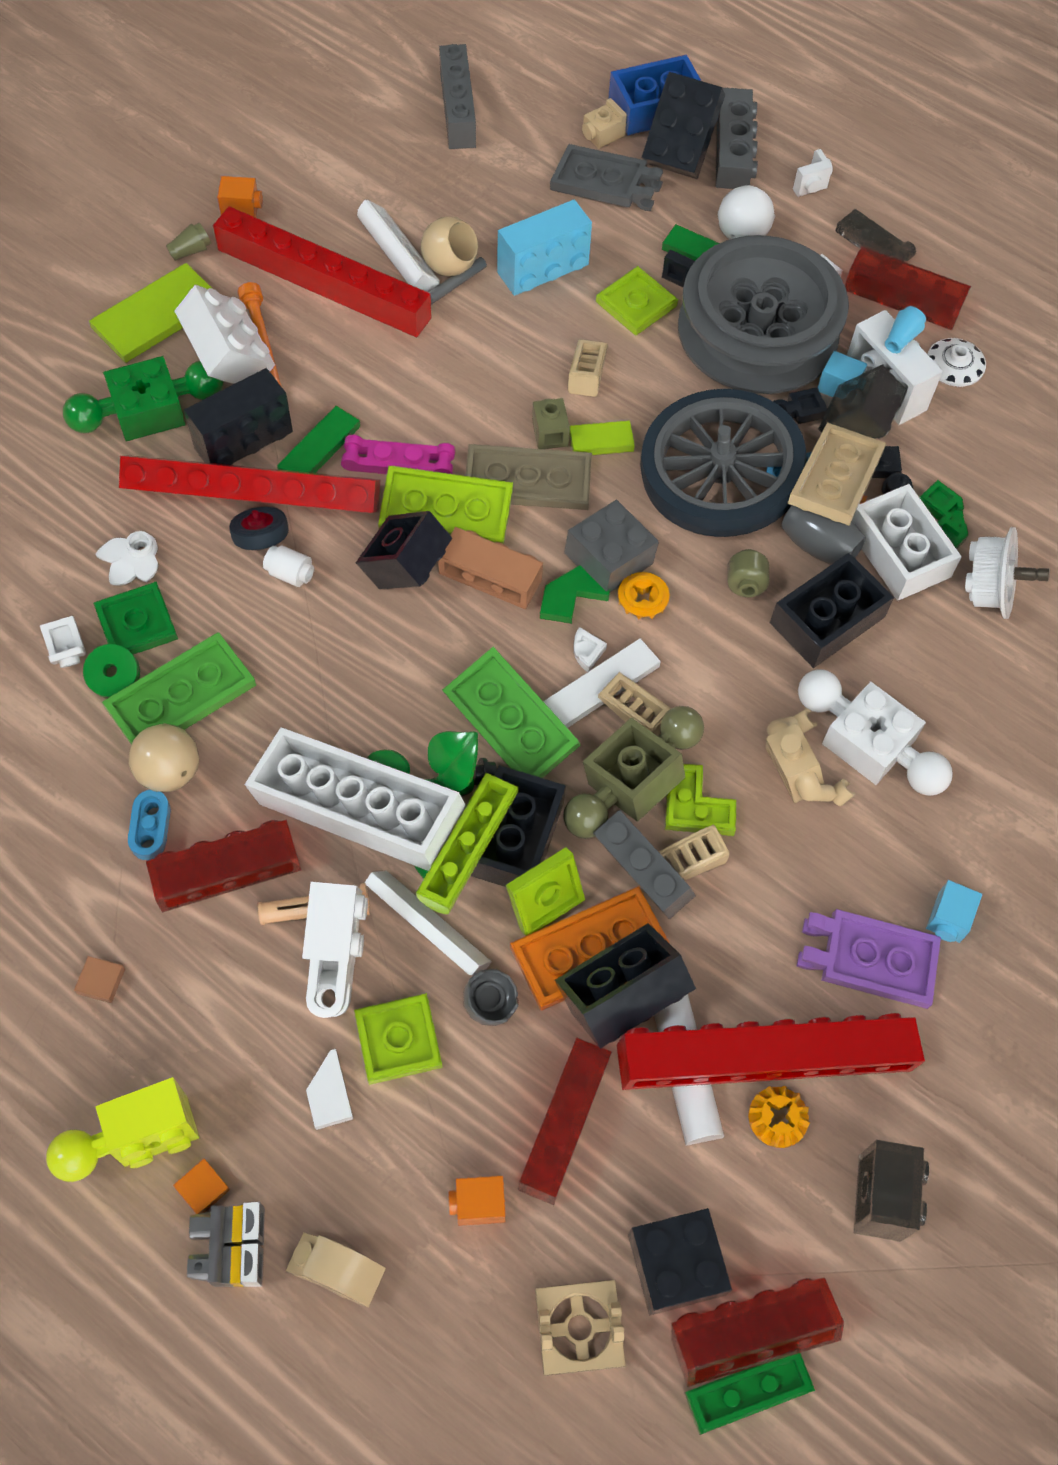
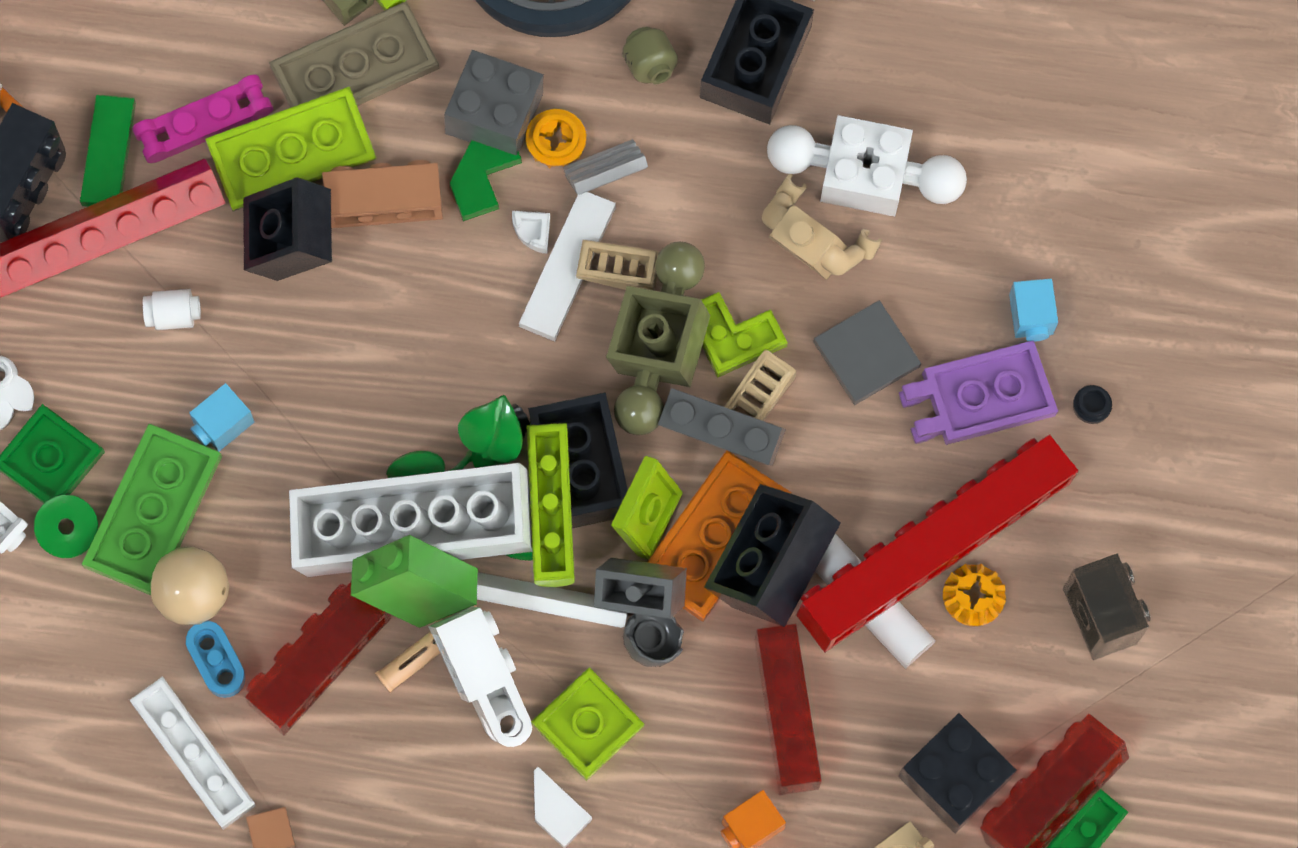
camera: 30 degrees left, 10 degrees up
(85, 886) = (192, 753): none -> white tile
(259, 528) = (112, 285): black wheel -> none
(271, 656) = (220, 418): none -> medium azure brick
(326, 842) = (414, 581): none -> bright green brick
(502, 951) = (640, 588): none -> dark grey brick
(511, 716) = (502, 347): bright green plate -> none
(668, 632) = (605, 167): none -> light grey tile
(795, 872) = (867, 352): none -> dark grey tile
(965, 1015) = (1092, 404): none -> black plate

